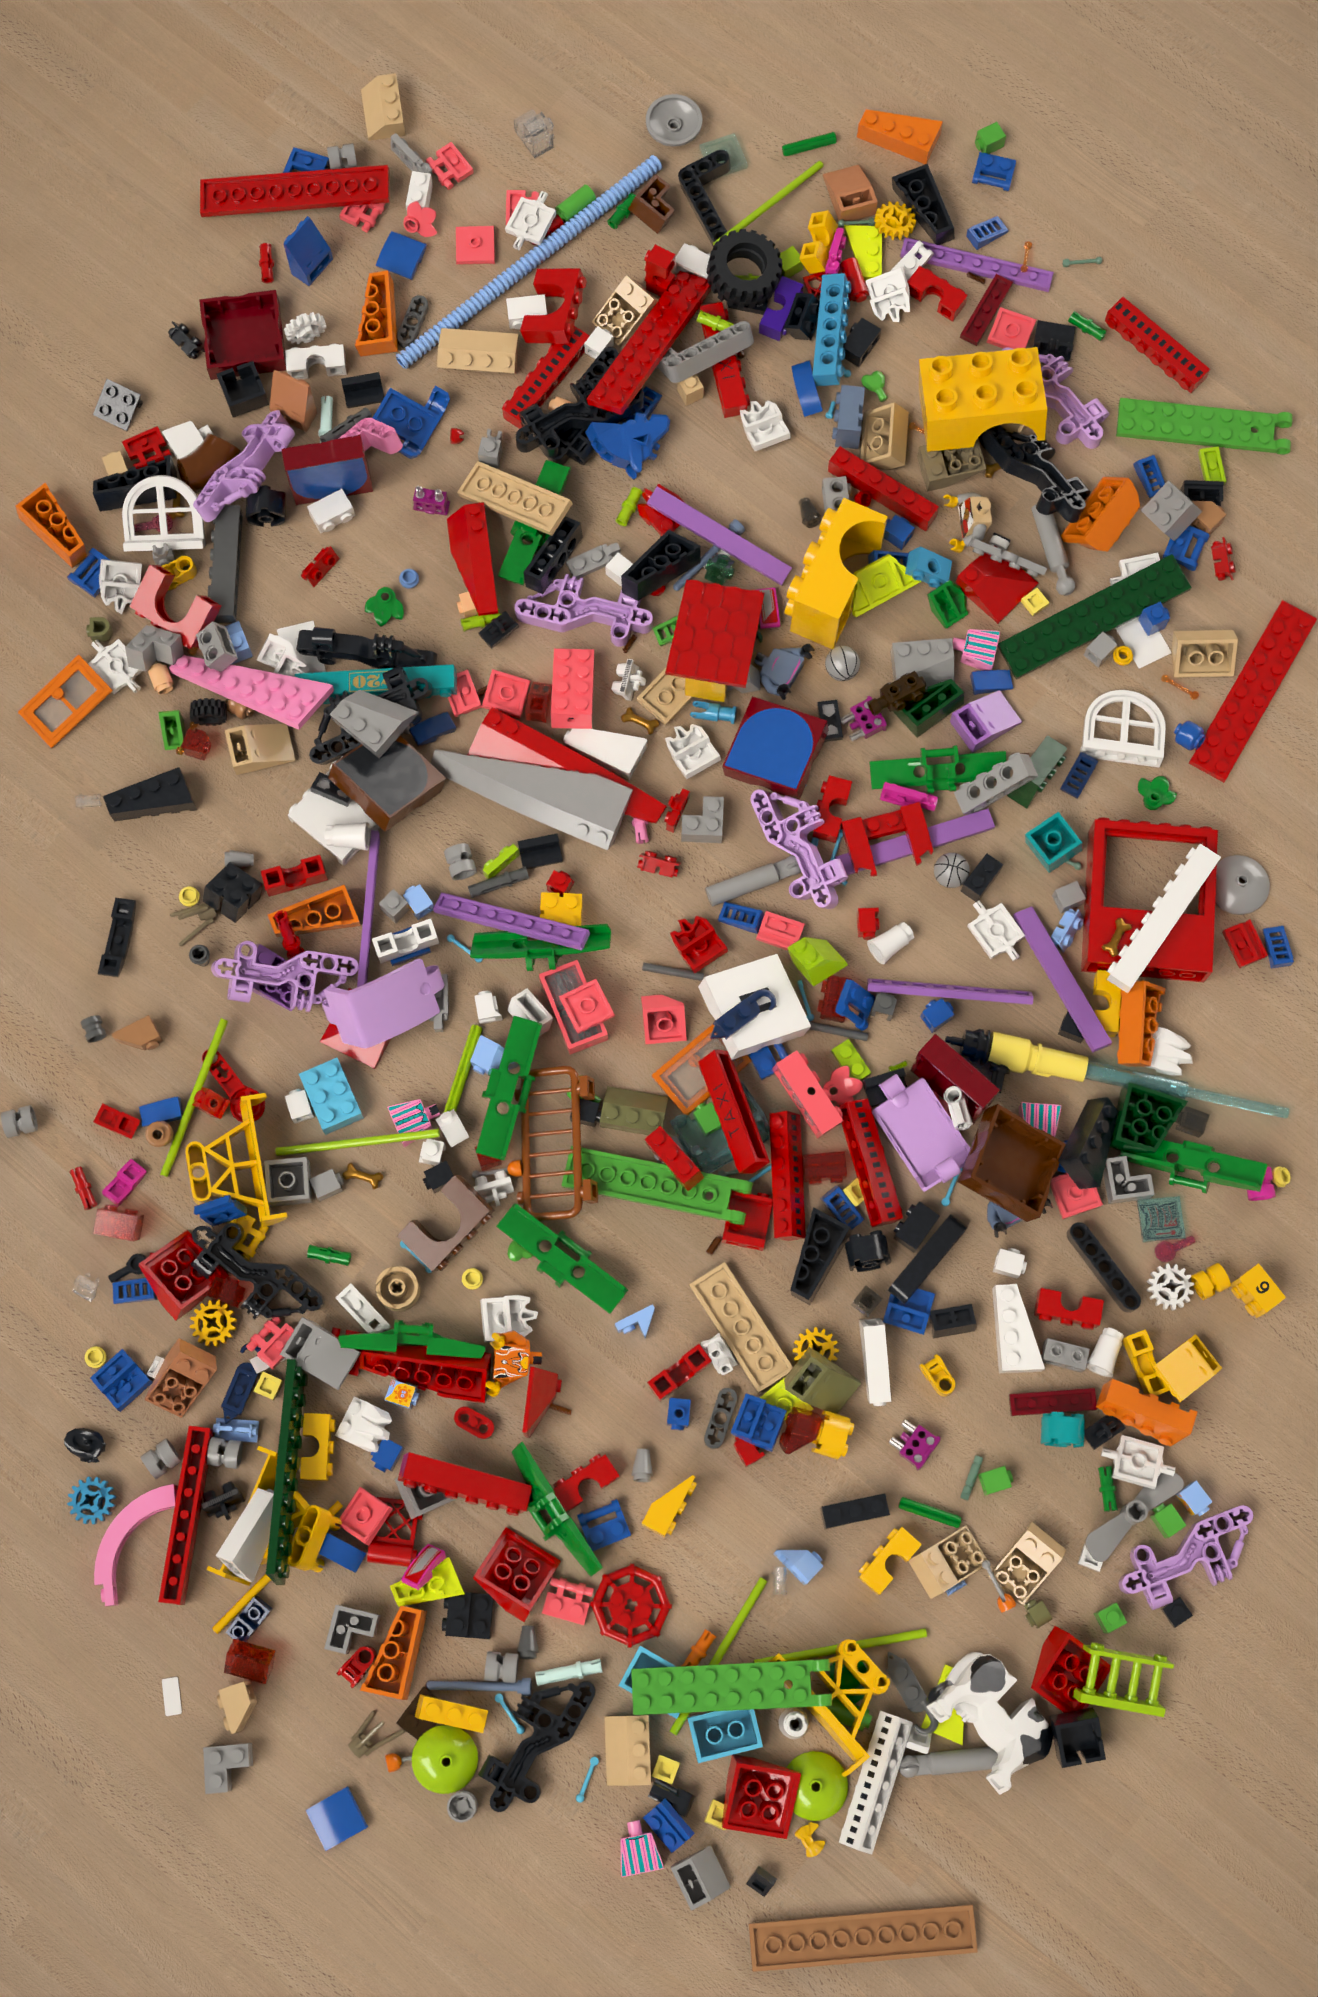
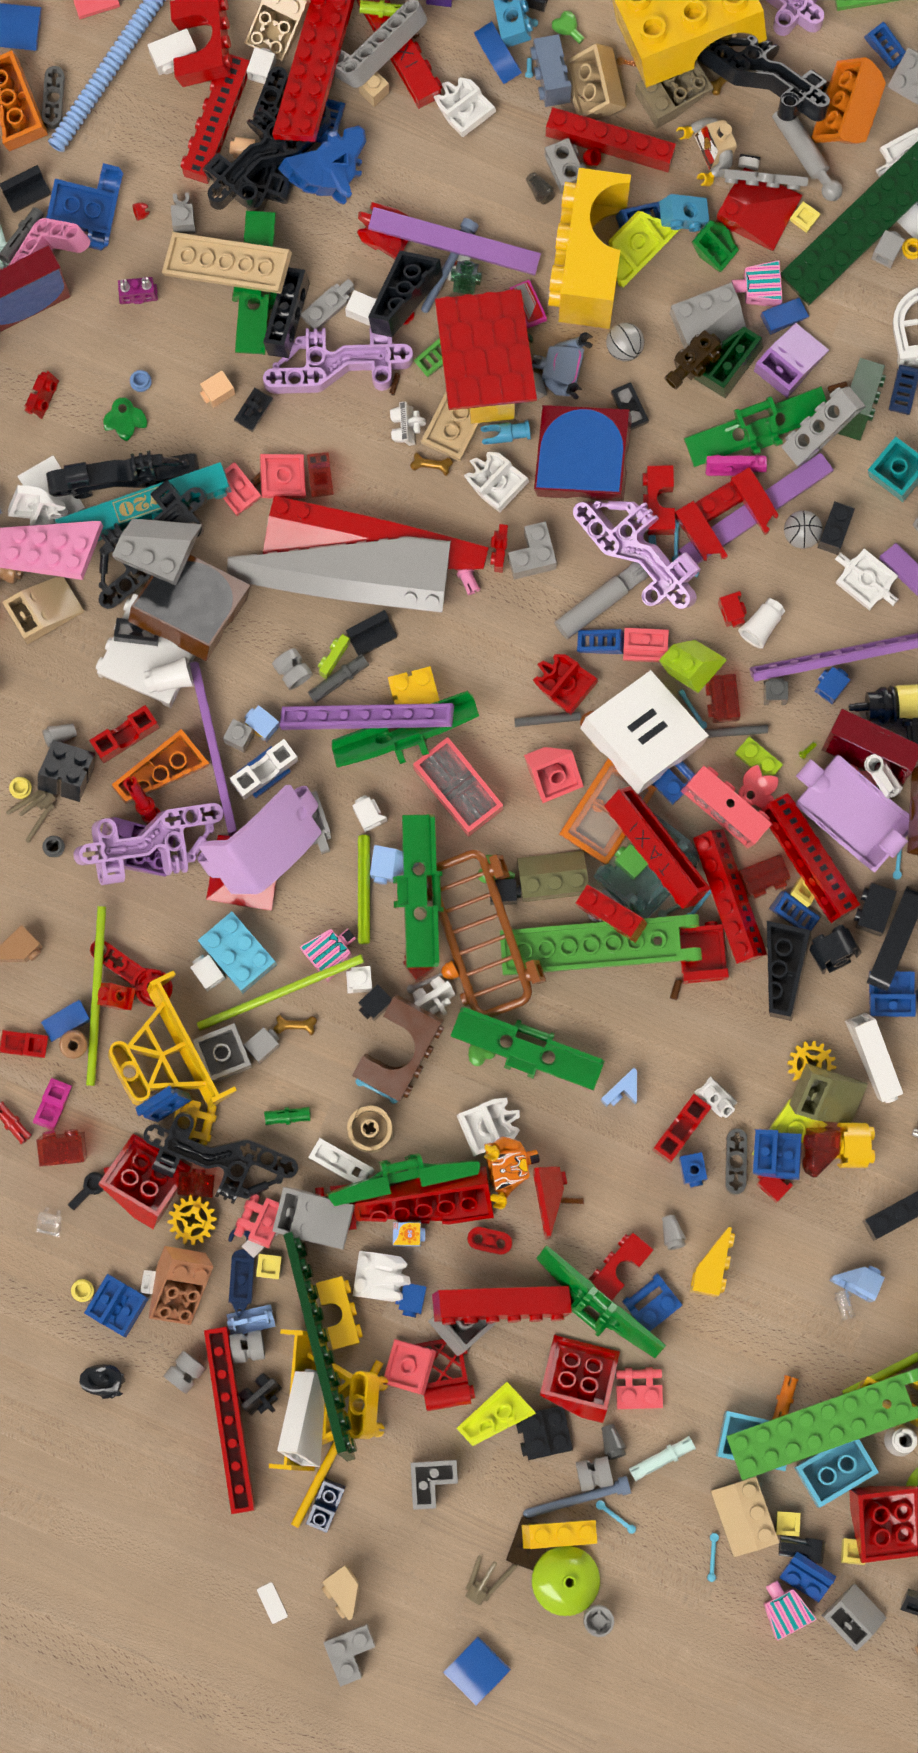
camera: 15 degrees left, 5 degrees up
(86, 1491) = (135, 1442): dark azure gear -> none
(120, 1530) = (167, 1453): bright pink arch -> none
(149, 1297) = (84, 1226): blue slope -> none
(249, 1661) = (341, 1545): clear red brick -> none
(331, 511) = (35, 331): white brick -> none
(341, 1552) = (398, 1410): blue brick -> none
(356, 1666) = (449, 1517): red piece -> none
(394, 1761) = (516, 1598): orange hinge -> none
(397, 1656) = (487, 1495): orange wedge -> none
(421, 1568) = (483, 1401): slope -> none
(431, 728) = (216, 536): dark blue slope -> none
(450, 938) = (307, 751): medium azure hinge -> none
(452, 1127) = (372, 948): white brick -> none
(472, 555) = (201, 337): red wedge -> none
(472, 1278) = (441, 1096): light yellow plate -> none
(477, 621) = (230, 404): lime pin -> none
(478, 350) = (135, 111): tan slope -> none
(513, 1776) = (657, 1532): black beam -> none
(528, 1007) = (414, 802): white brick -> none
(559, 883) = (403, 661): red brick -> none
(572, 688) = (352, 451): coral brick -> none
(586, 1006) = (473, 783): coral plate -> none
(609, 750) = (407, 505): white slope -> none
(624, 1616) = (703, 1387): red plate -> none
(629, 506) = (348, 236): lime pin -> none
(651, 861) = (490, 610): red hinge -> none
(727, 1641) = (810, 1379): lime piece -> none
(740, 1015) = (635, 745): dark blue plate -> none
(741, 1327) = (729, 1064): tan plate -> none
(857, 998) = (747, 692): blue plate -> none
(866, 1301) = (848, 1000): clear smoke brick -> none
(873, 1090) = (788, 777): black panel -> none
(876, 722) = (679, 396): magenta piece -> none
(898, 531) = (641, 181): blue brick -> none

